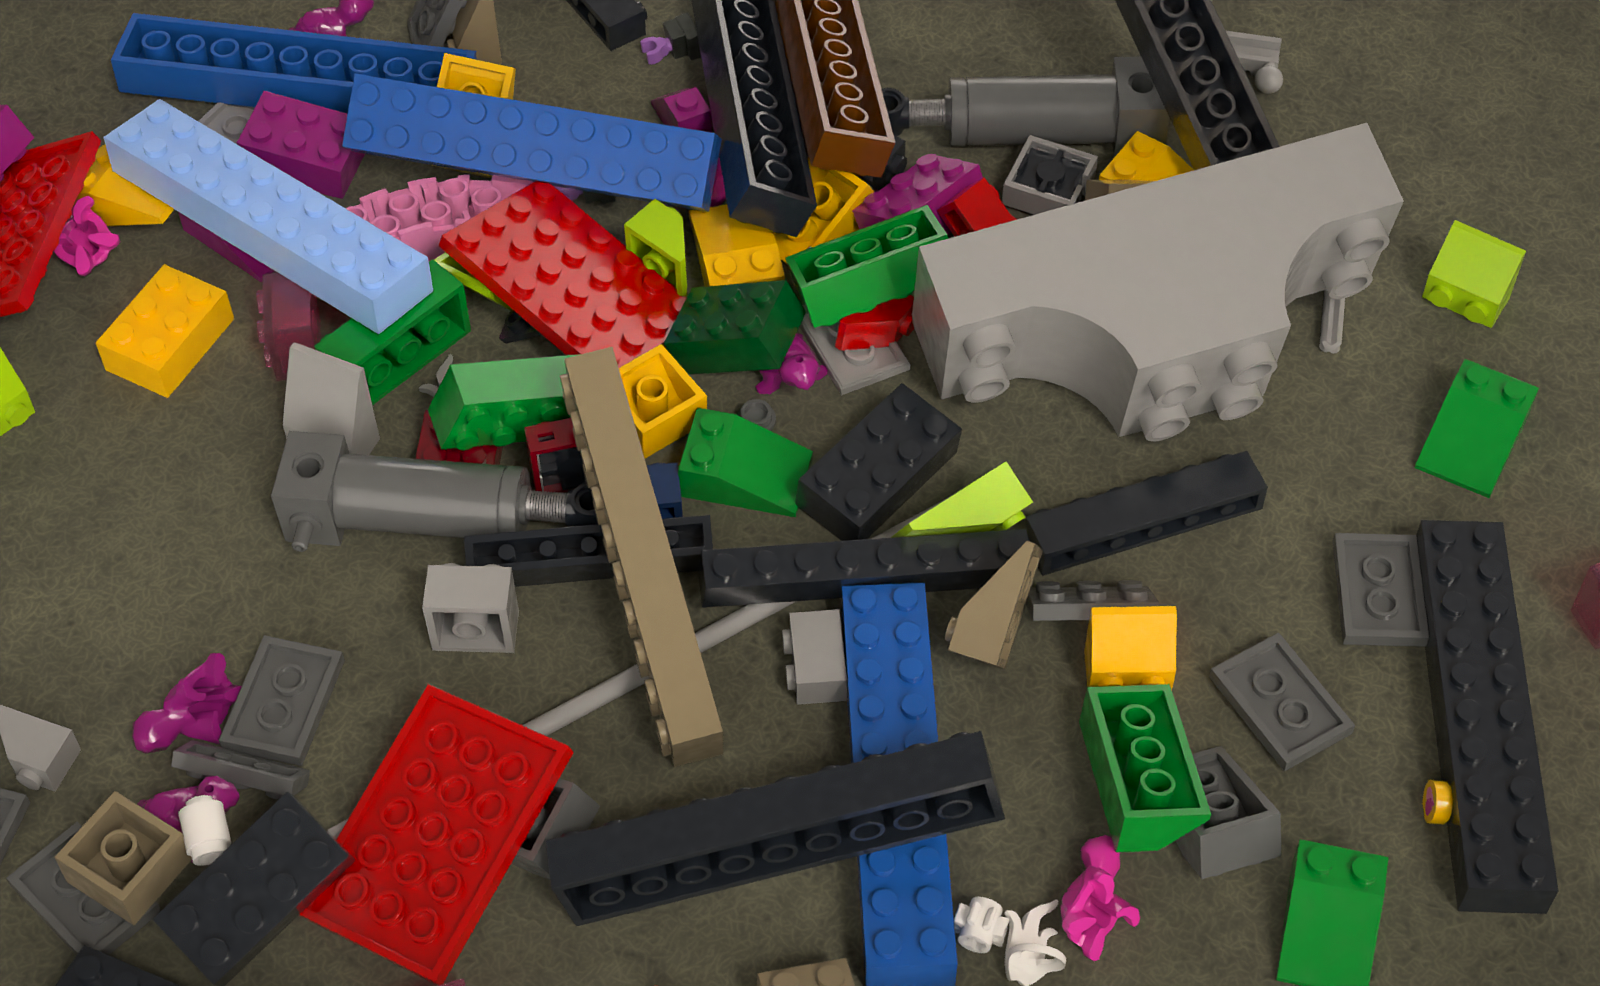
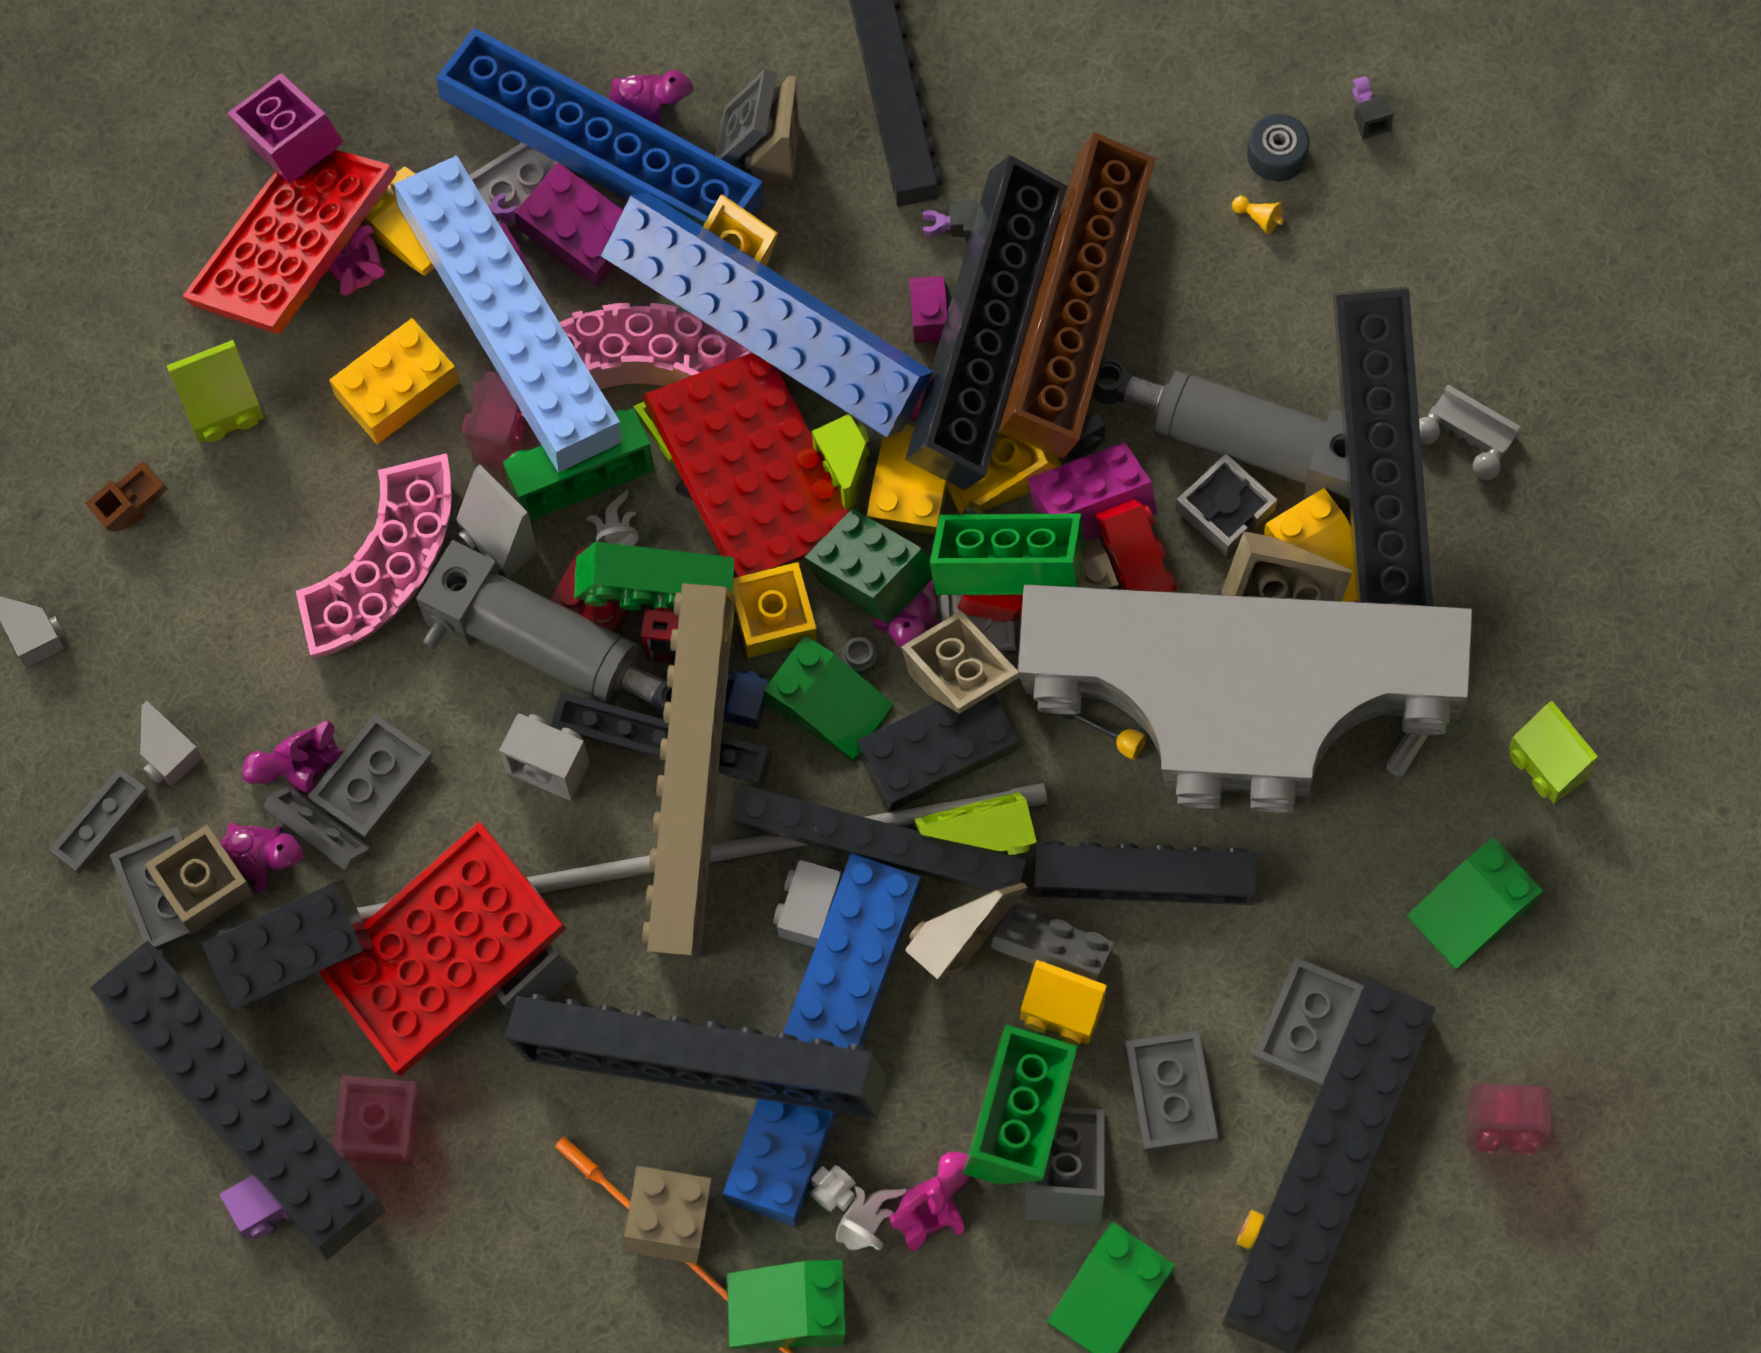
camera: 25 degrees right, 15 degrees up
(204, 829) = (264, 882): white brick -> none
(223, 493) = (389, 563): none -> bright pink brick
(866, 377) = (957, 663): none -> dark tan slope
(1064, 404) = (1128, 742): none -> yellow hinge

